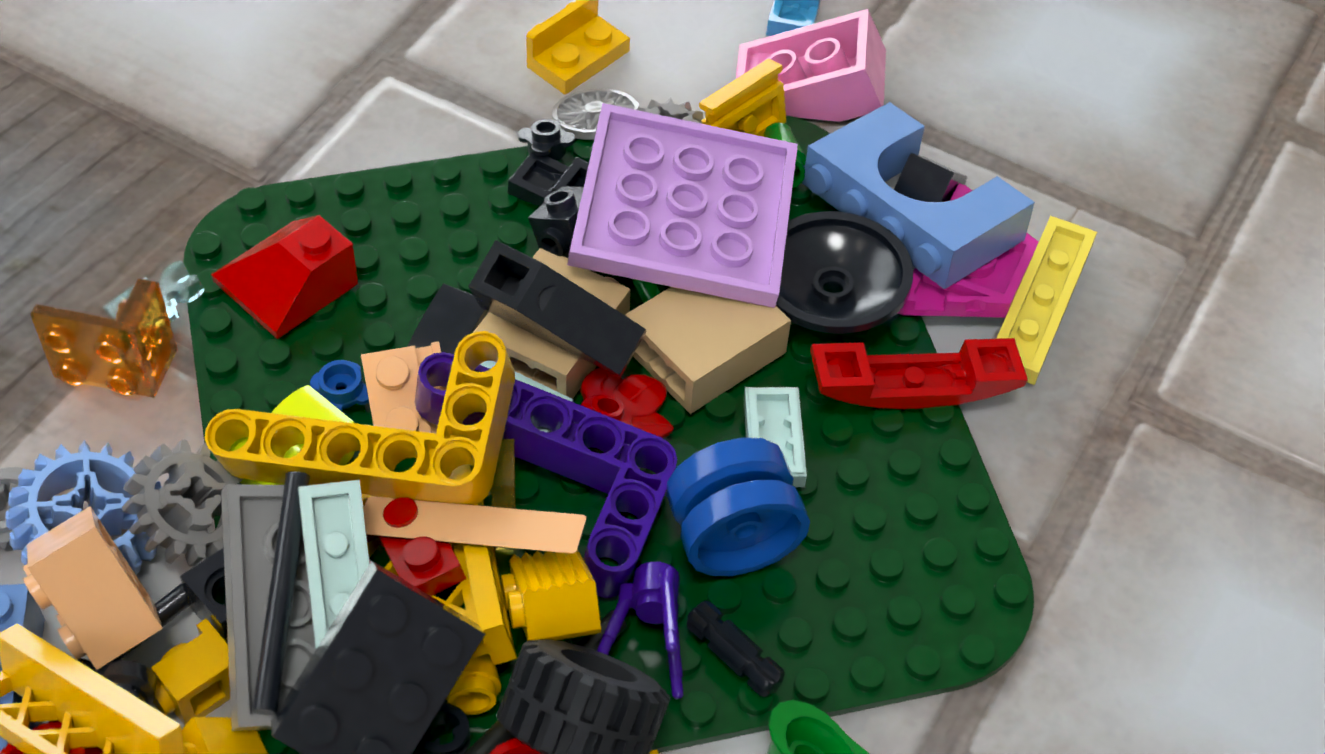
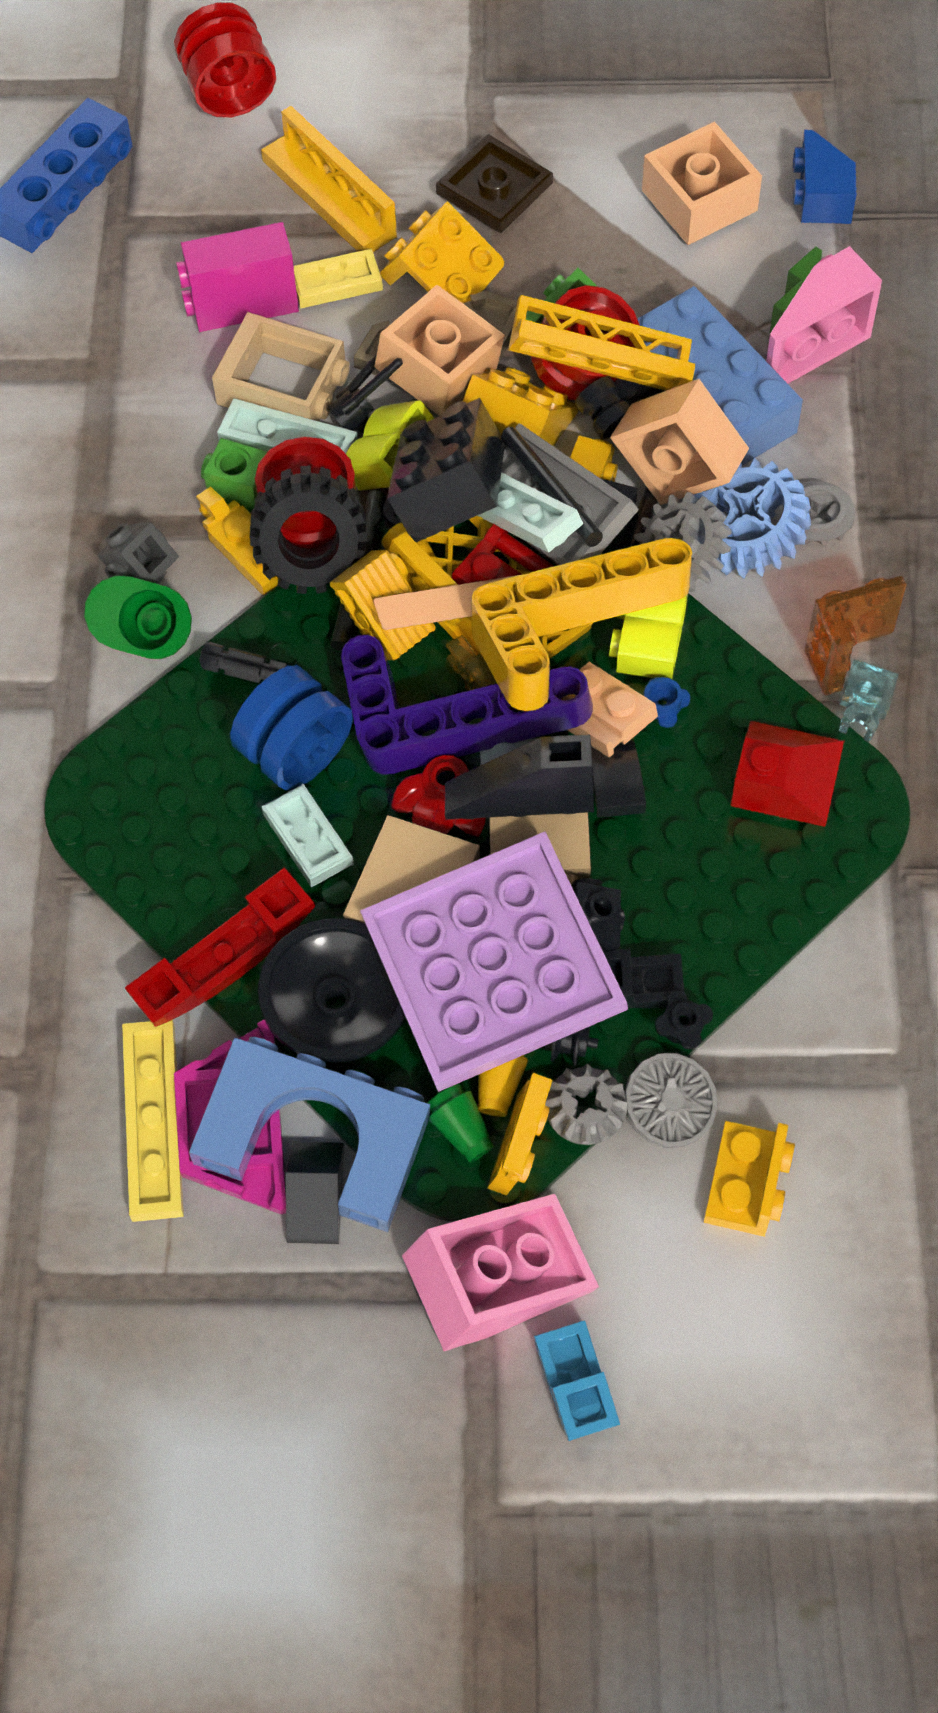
camera: 155 degrees right, 10 degrees up
(655, 600) = (317, 656): dark purple plant -> none

